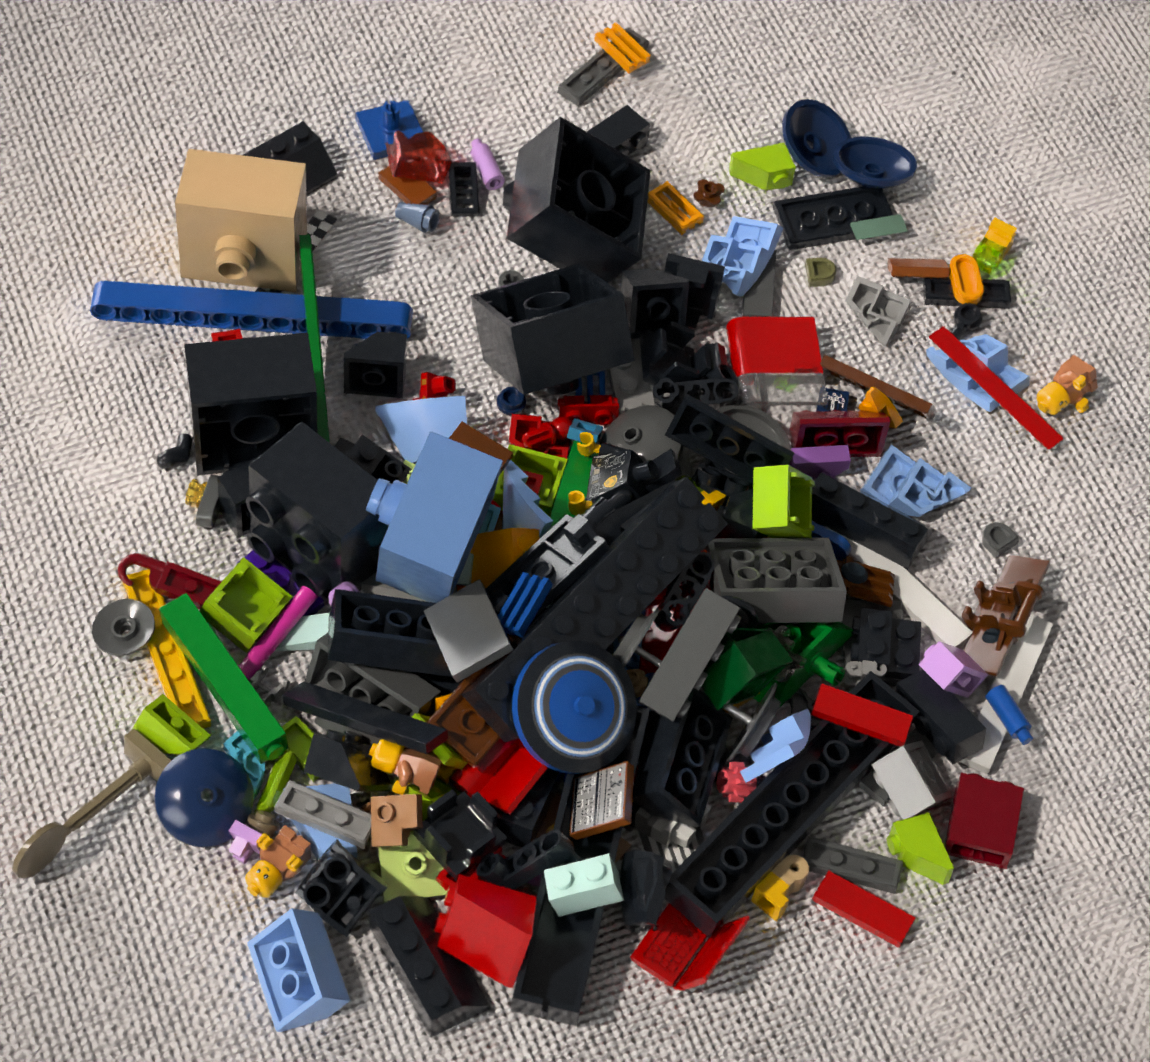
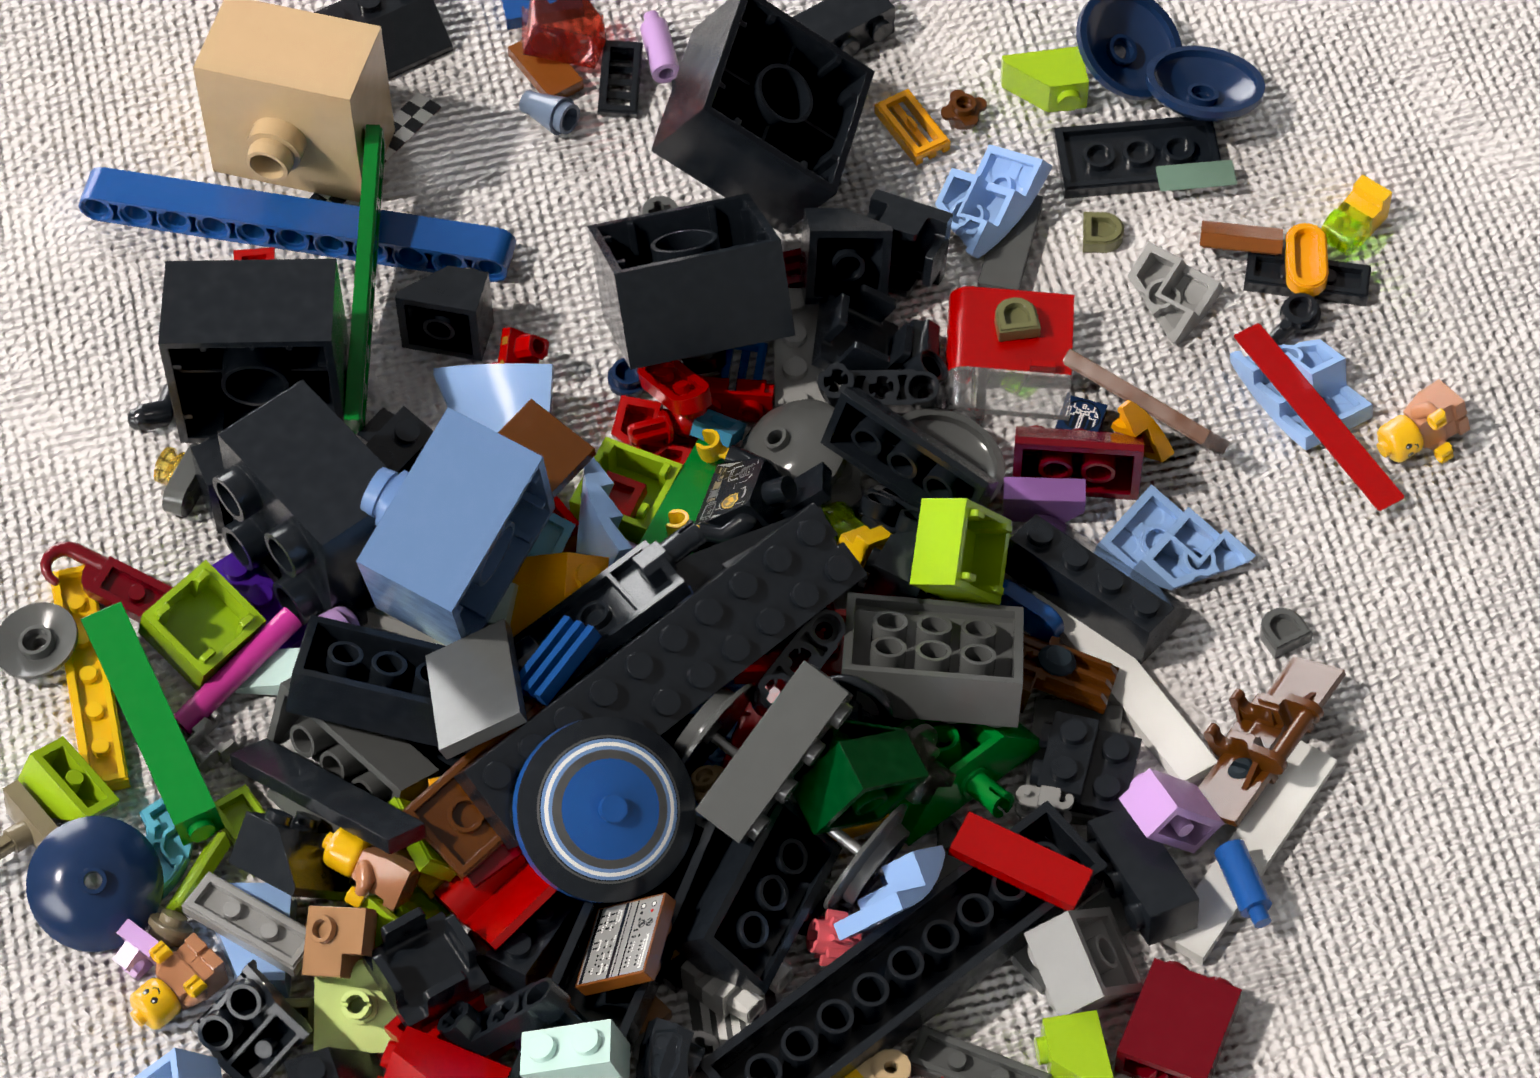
camera: 15 degrees right, 0 degrees up
(554, 406) = (677, 388): none -> red plate
(779, 337) = (1016, 320): none -> olive tile

